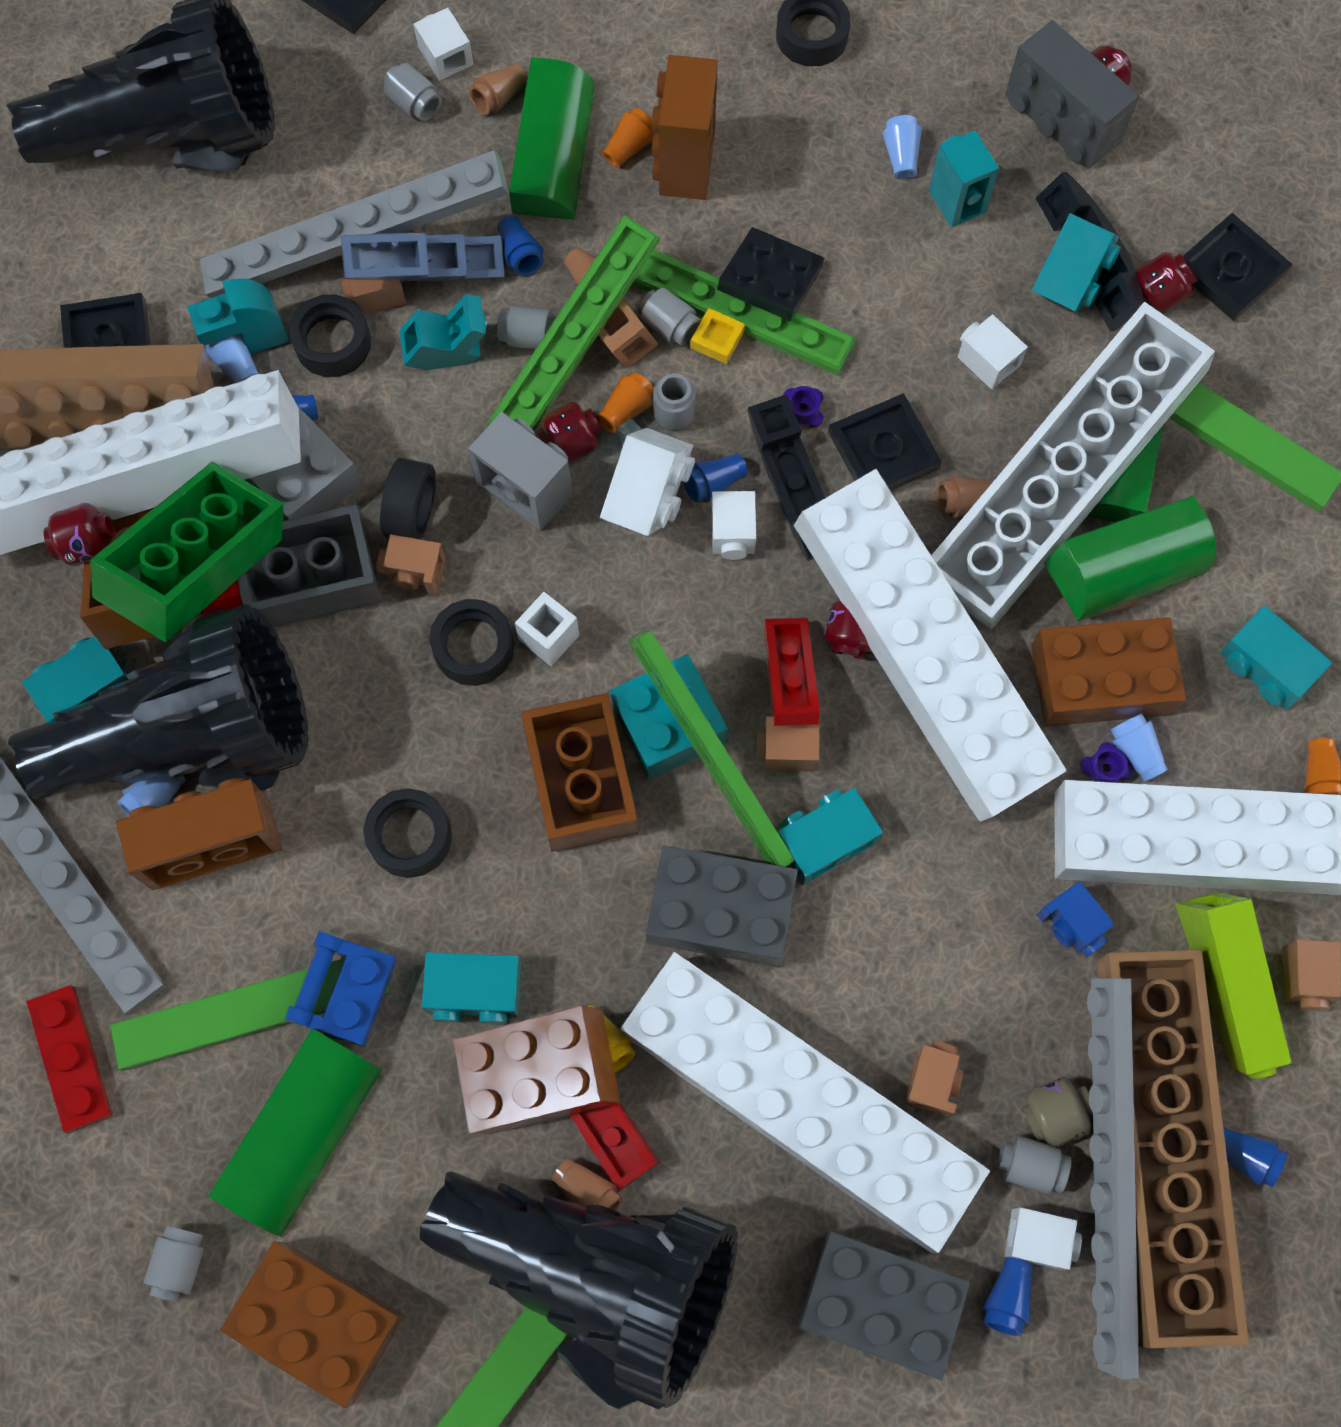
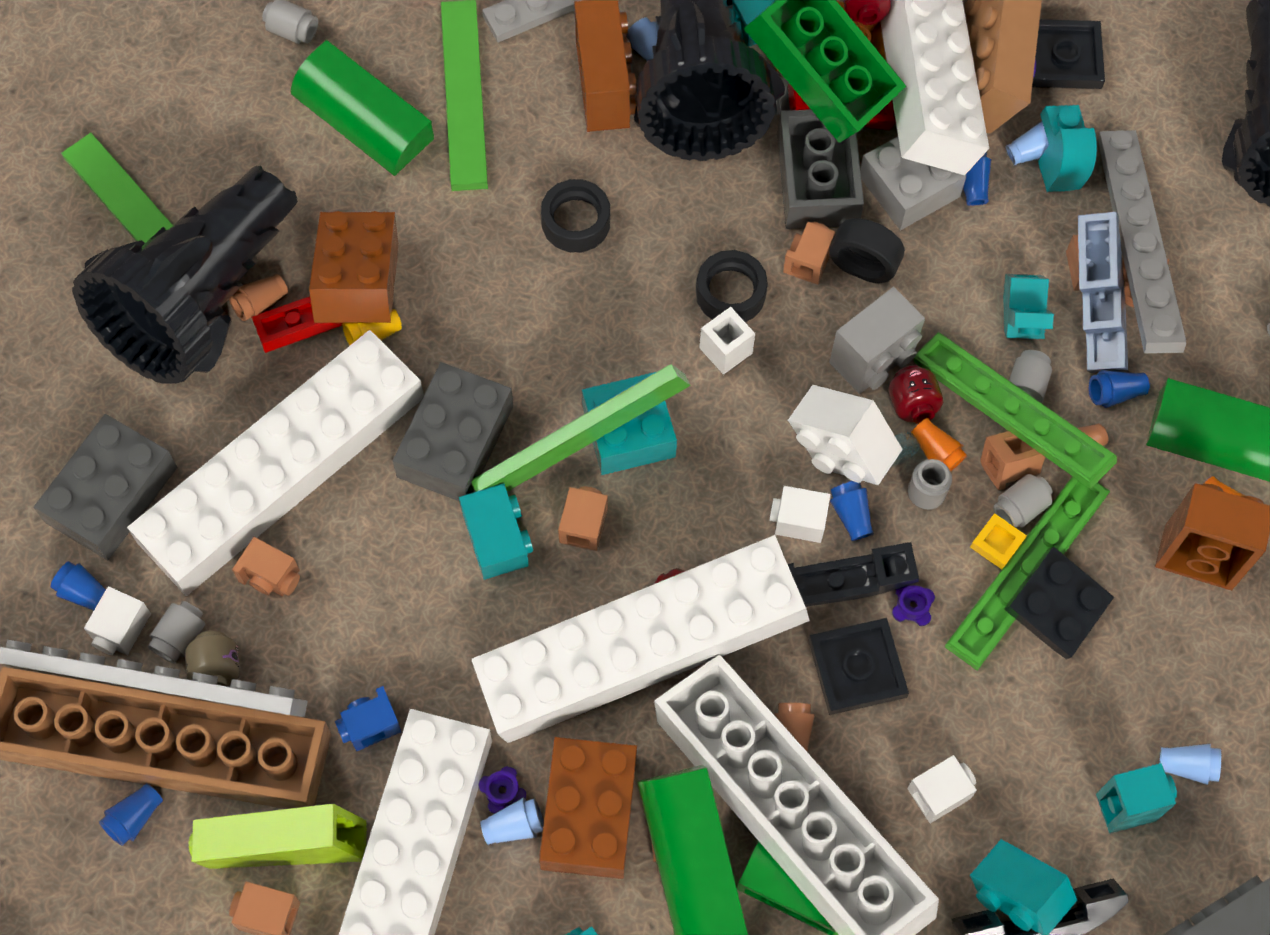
camera: 100 degrees right, 5 degrees down
(312, 1323) = (219, 99): dark orange brick -> none
(324, 308) = (1030, 241): black tyre -> none
(355, 995) = (453, 159): blue plate -> none
(471, 986) = (438, 240): teal brick -> none
(580, 772) = (592, 341): dark orange brick -> none
(791, 672) = (645, 526): red plate -> none

